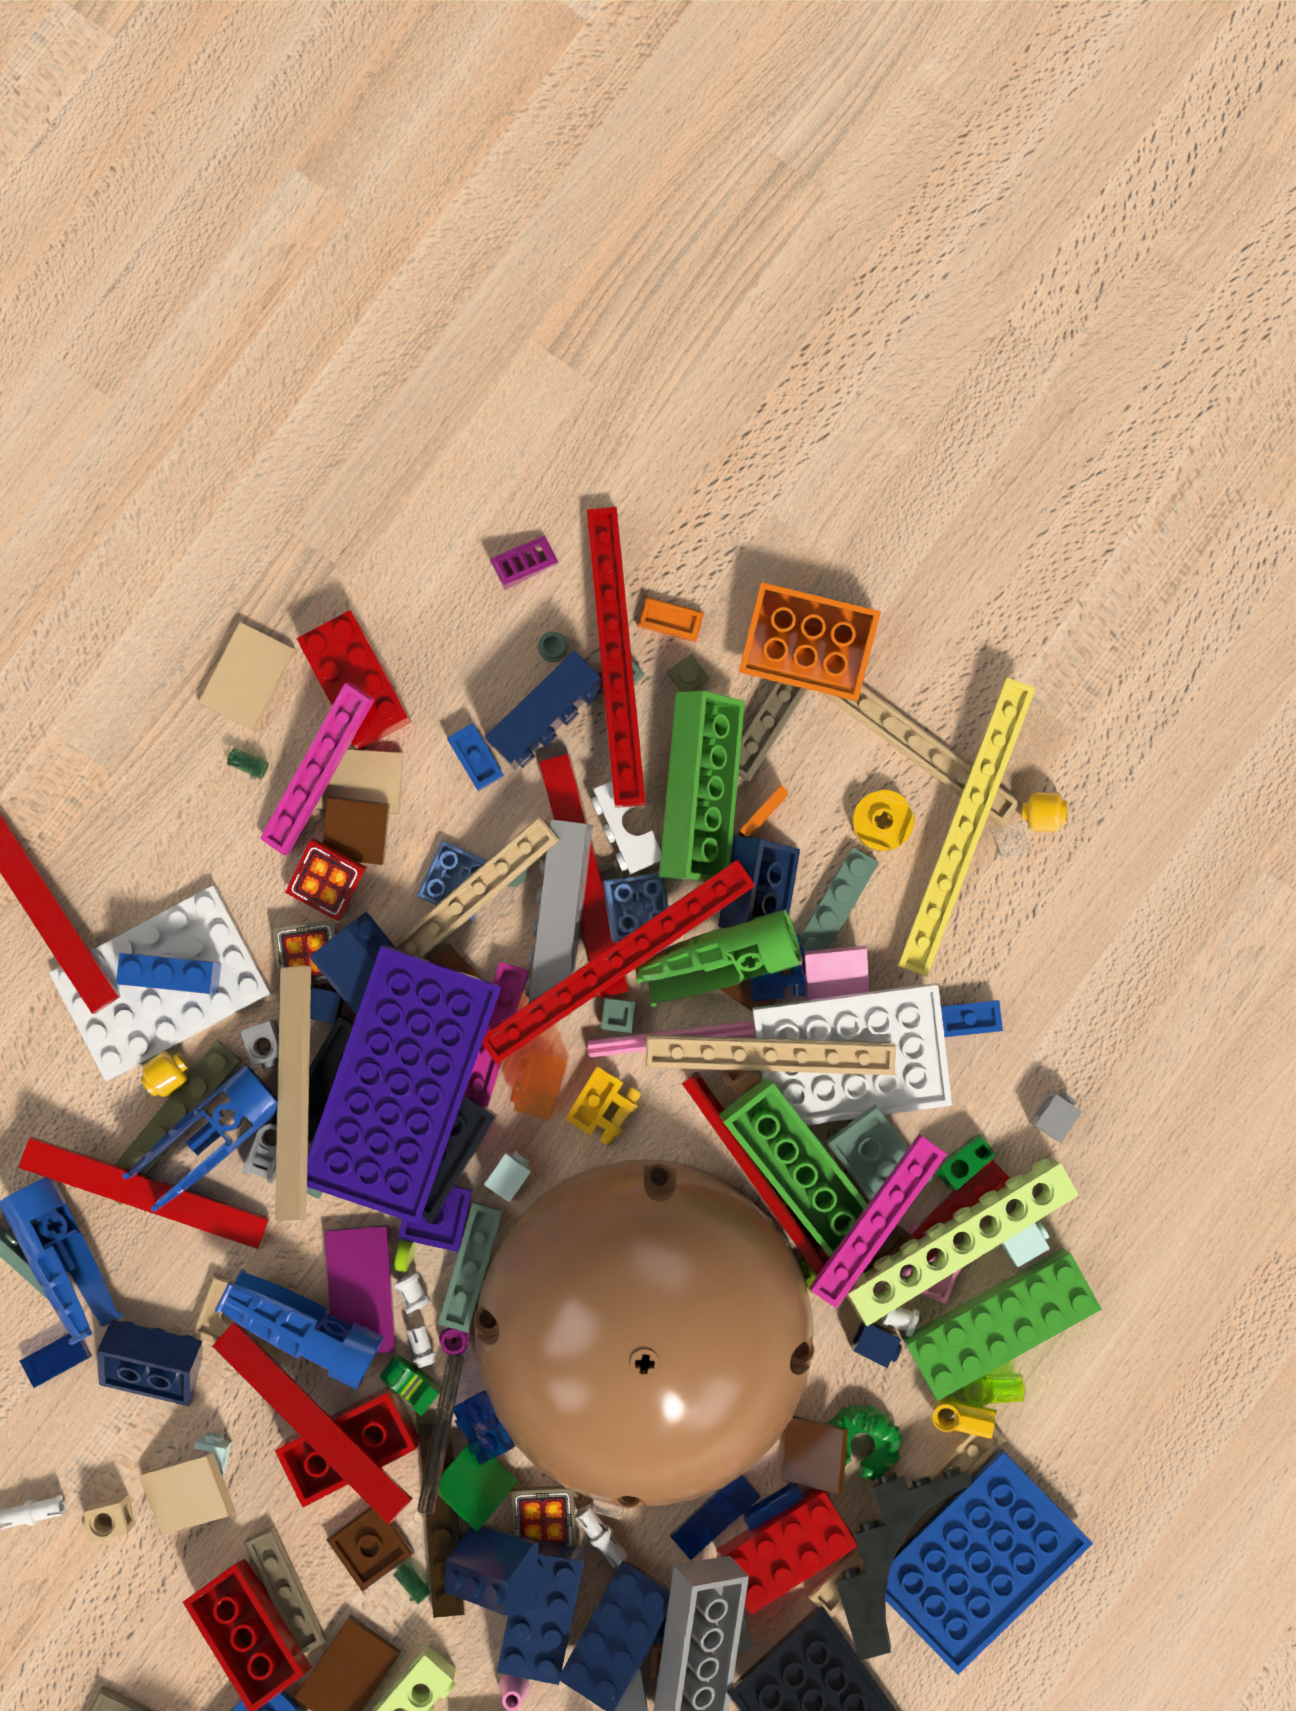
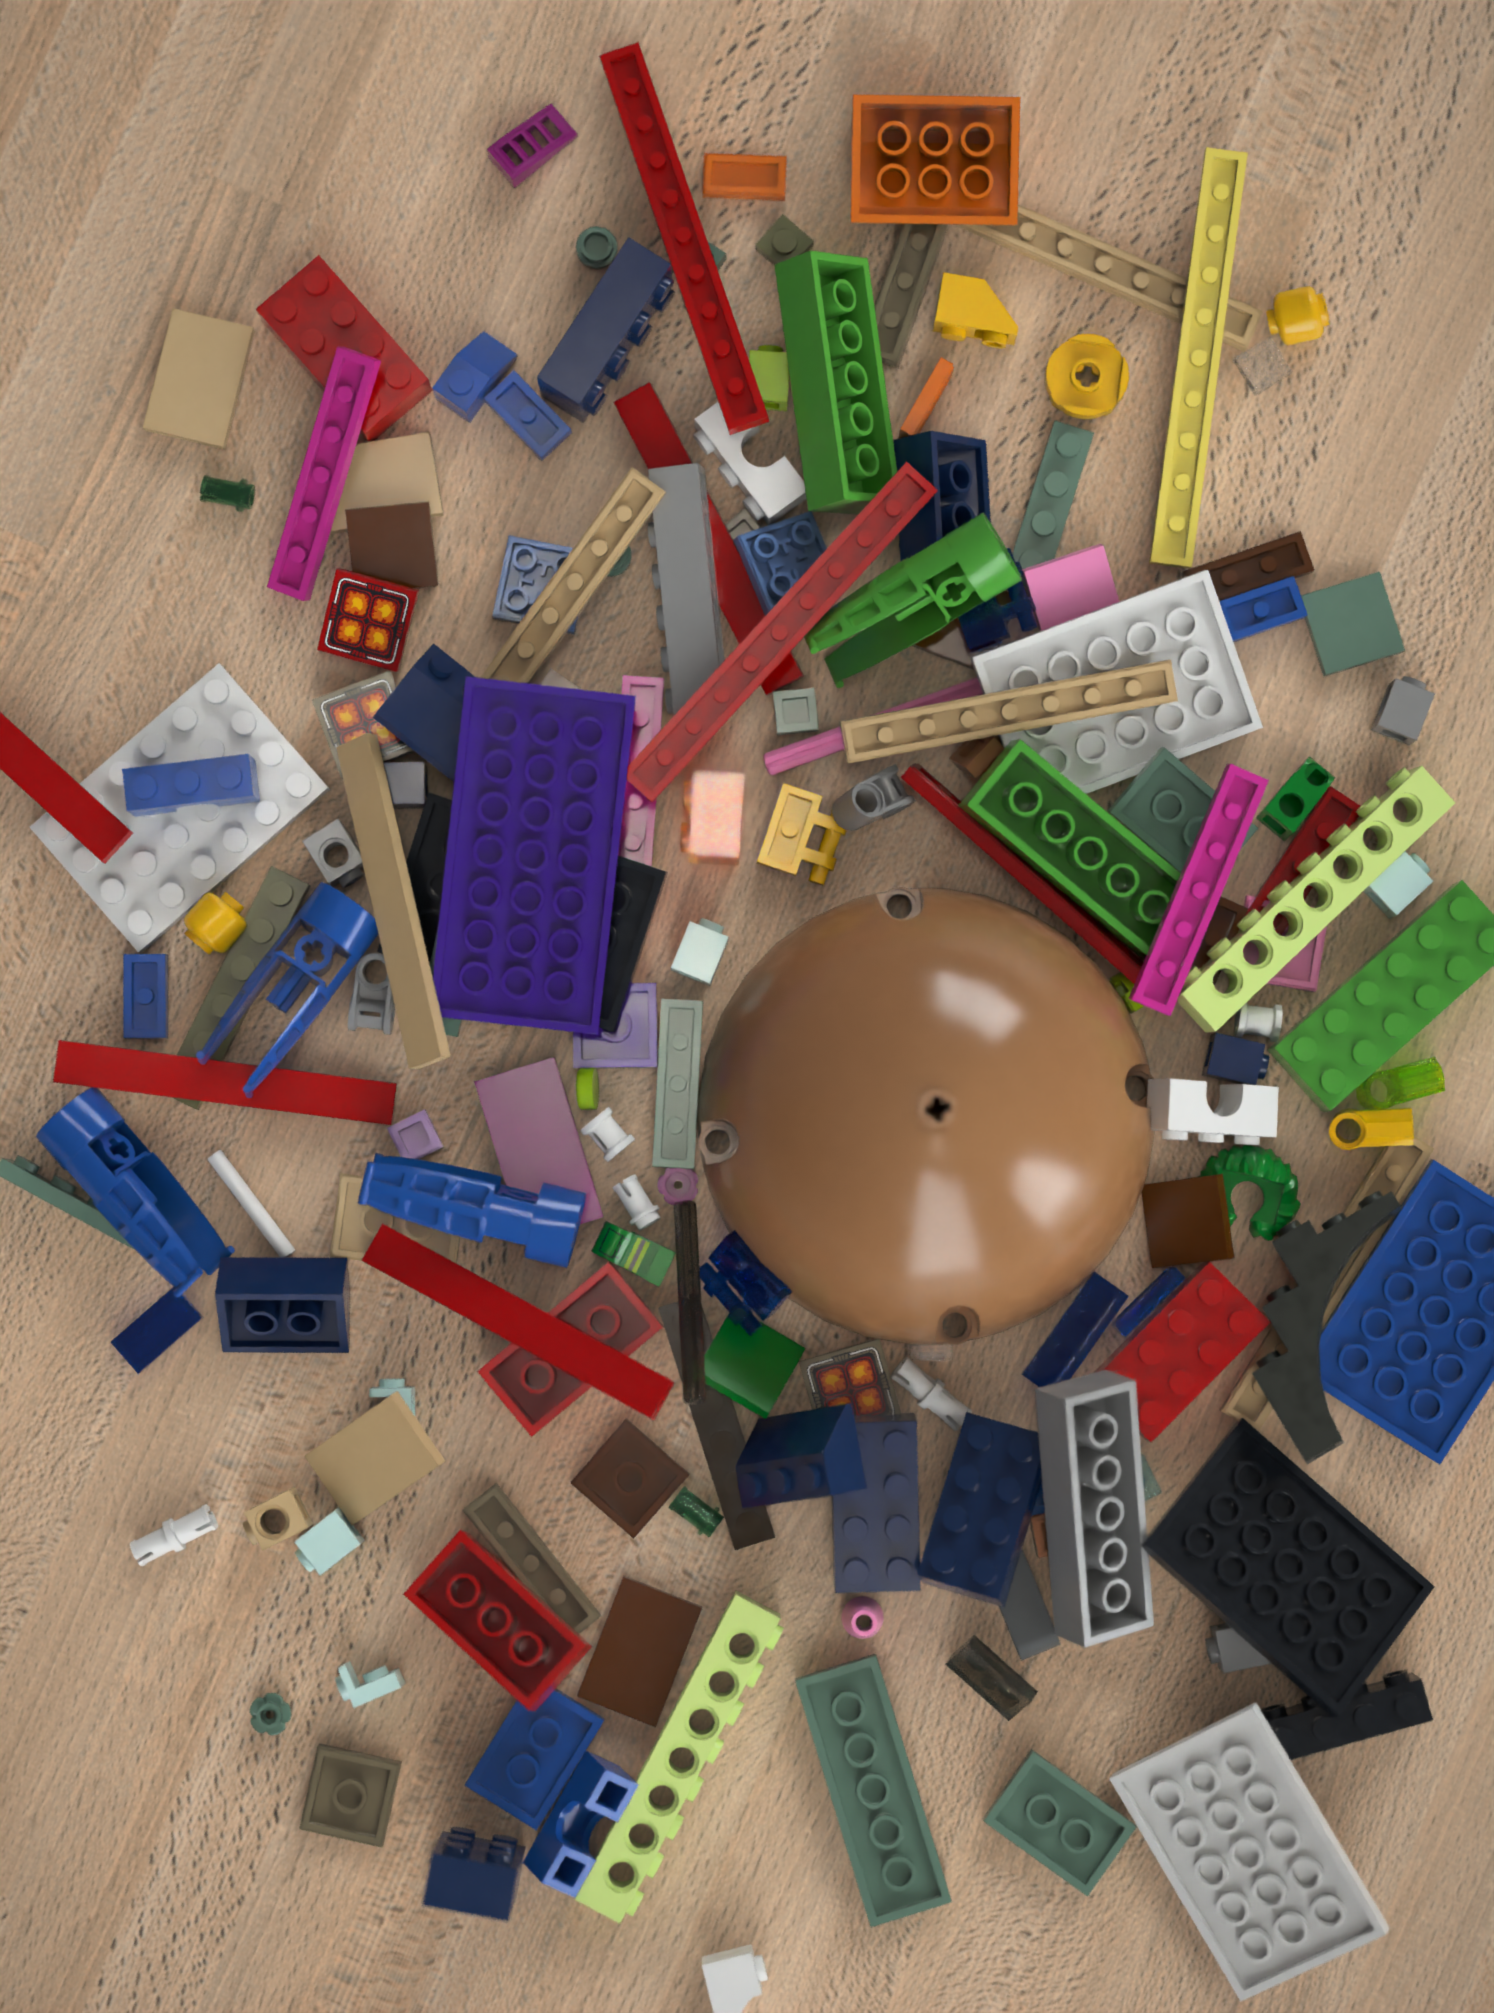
camera: 10 degrees left, 0 degrees up
(72, 1650) = (274, 1703): none -> sand green plate
(103, 1115) = (145, 996): none -> blue plate
(141, 1544) = (327, 1542): none -> light aqua brick
(144, 1283) = (251, 1204): none -> white bar
(149, 1658) = (376, 1684): none -> light aqua bracket
(273, 1261) = (415, 1136): none -> lavender tile
(444, 718) = (473, 375): none -> blue slope
(655, 769) = (772, 375): none -> lime brick
(662, 1093) = (877, 798): none -> light grey piece
(811, 753) = (972, 310): none -> yellow slope
(871, 1385) = (1242, 1111): none -> white arch
(973, 986) = (1258, 566): none -> reddish brown tile
(1033, 1043) = (1352, 624): none -> sand green tile

